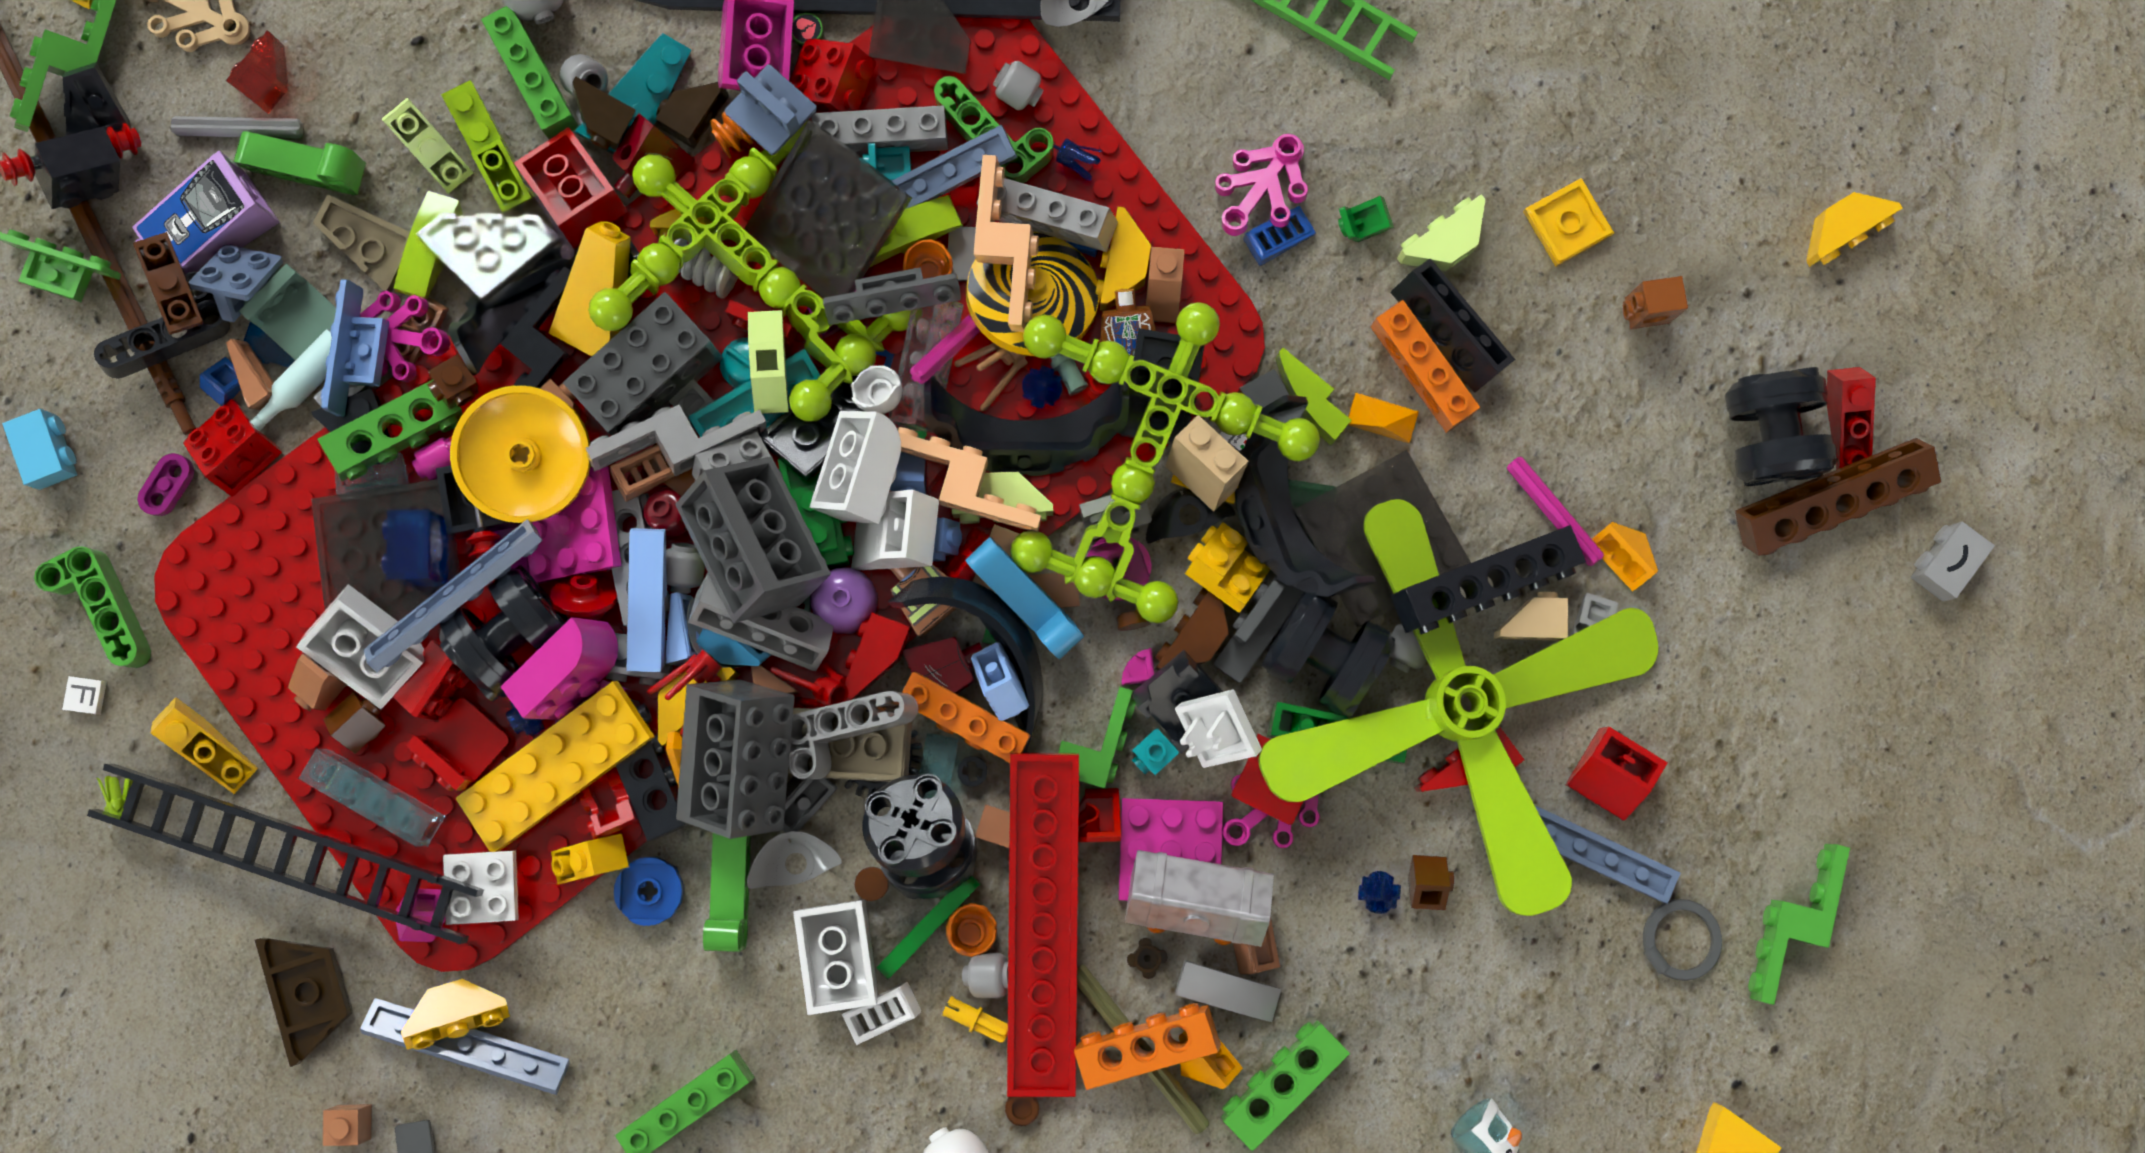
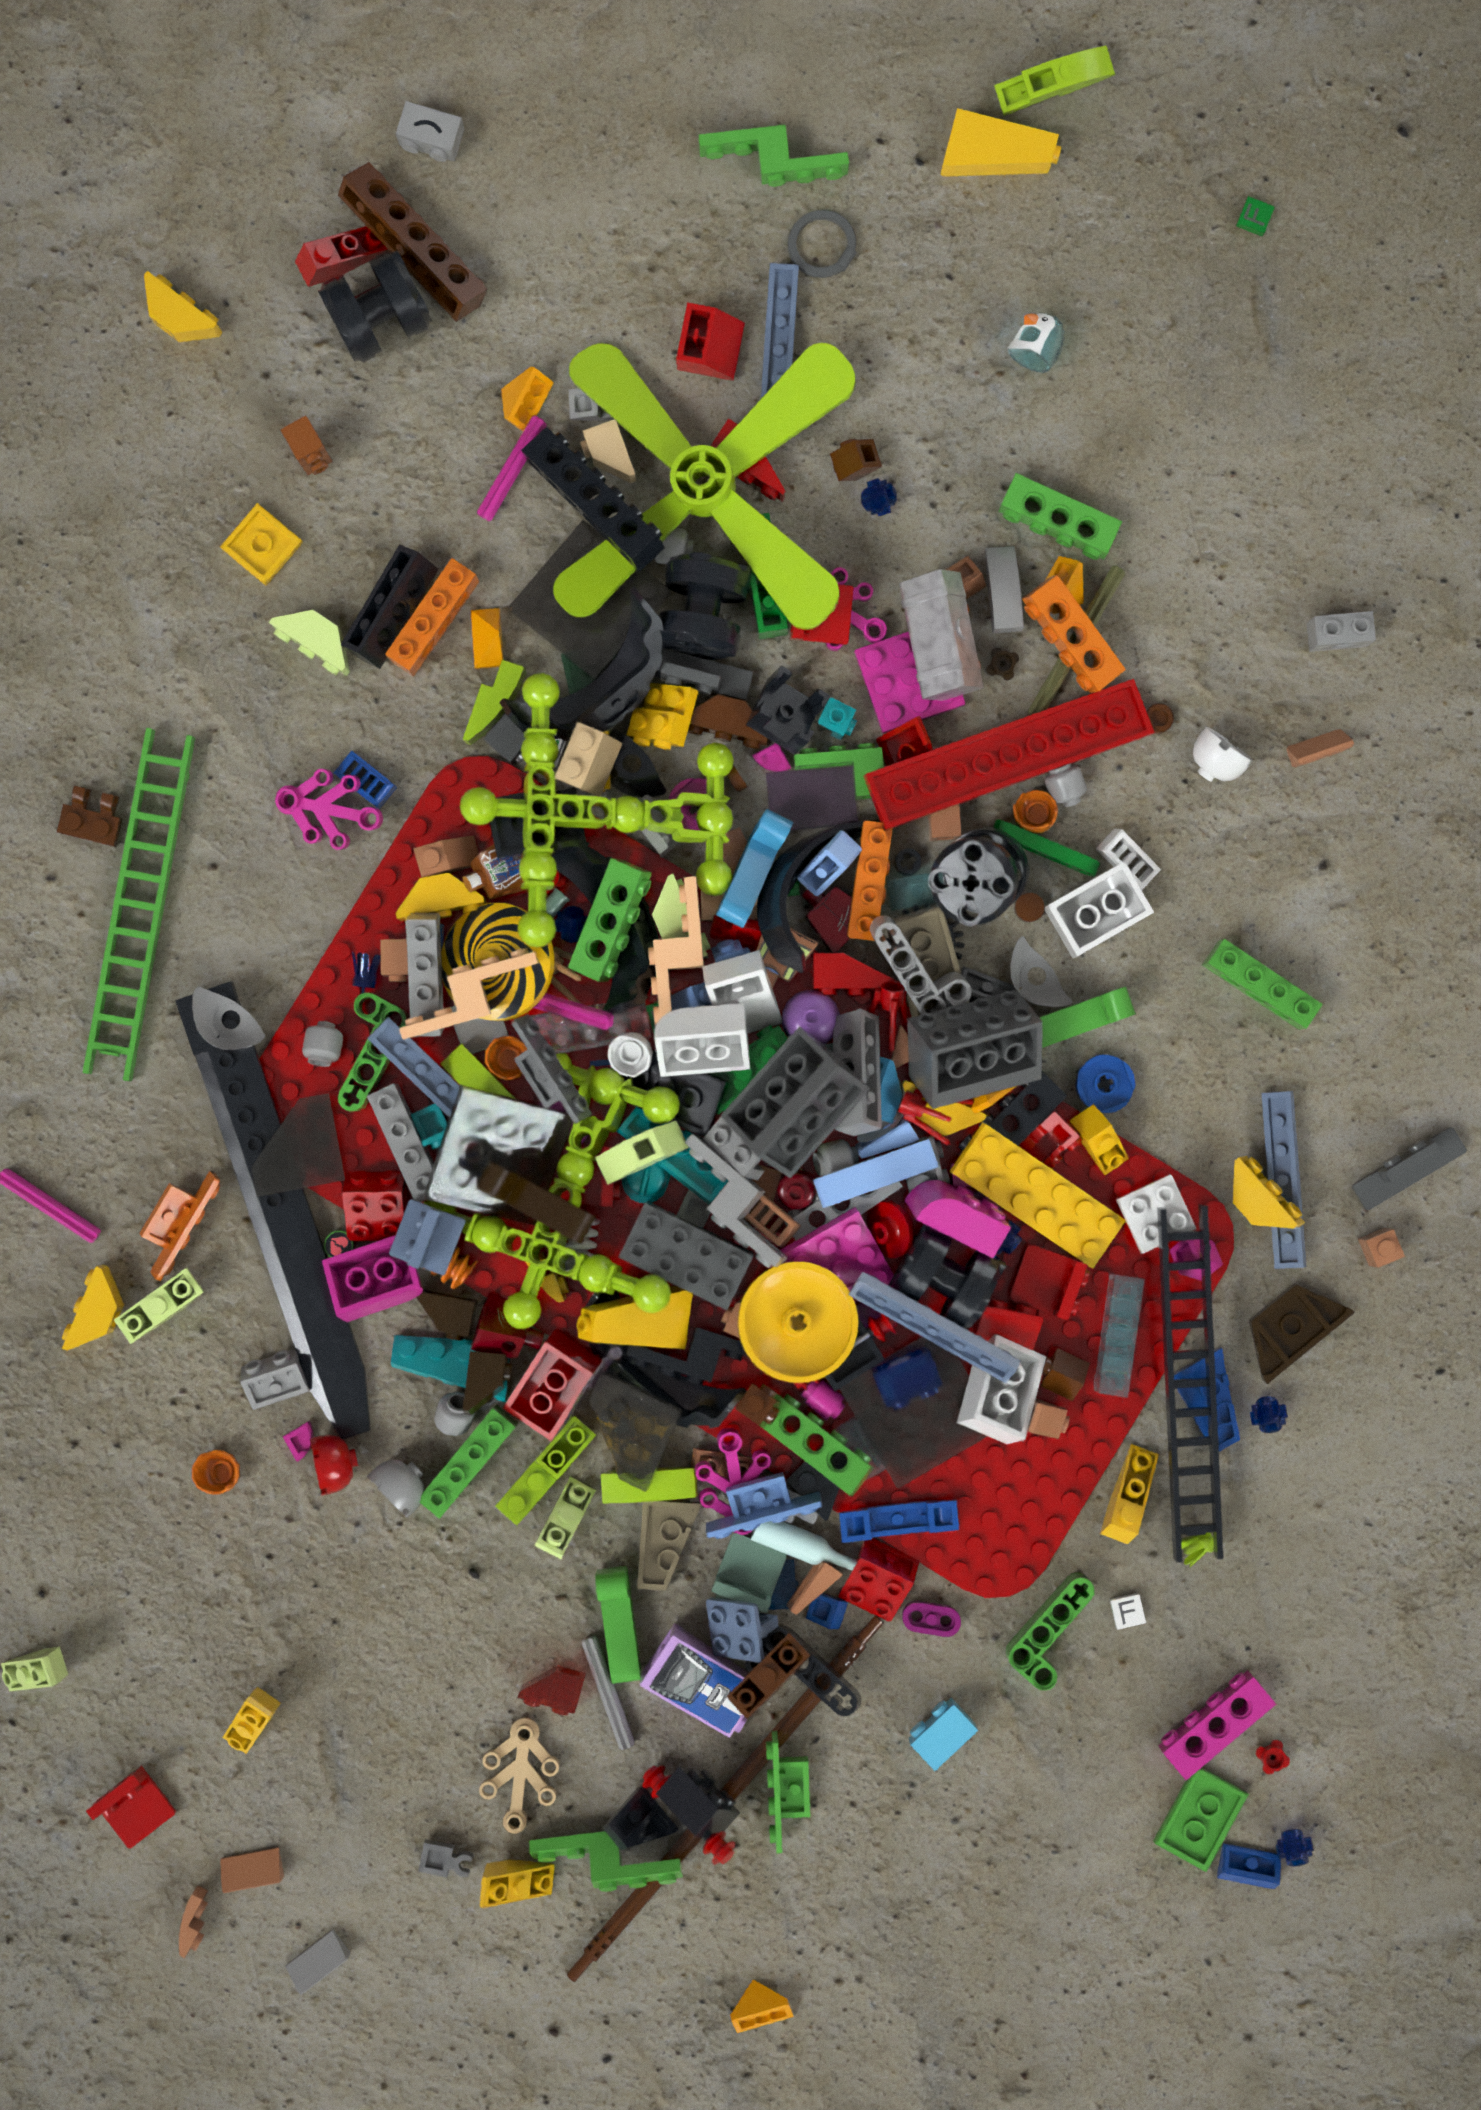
camera: 110 degrees left, 5 degrees up
(221, 928) = (1268, 1414): none -> clear blue gear
(239, 880) = (1197, 1397): none -> blue wing
(281, 488) = (898, 1519): none -> blue slope
(758, 228) = (535, 1201): none -> dark brown beam
(976, 1020) = (1104, 780): yellow axle -> none
(998, 387) = (596, 929): none -> bright green brick
(1078, 186) = (394, 959): none -> nougat brick
(1080, 696) = (813, 797): none -> clear purple piece
(1217, 729) = (801, 671): white plate -> none
(1365, 219) = (325, 712): green bracket -> none

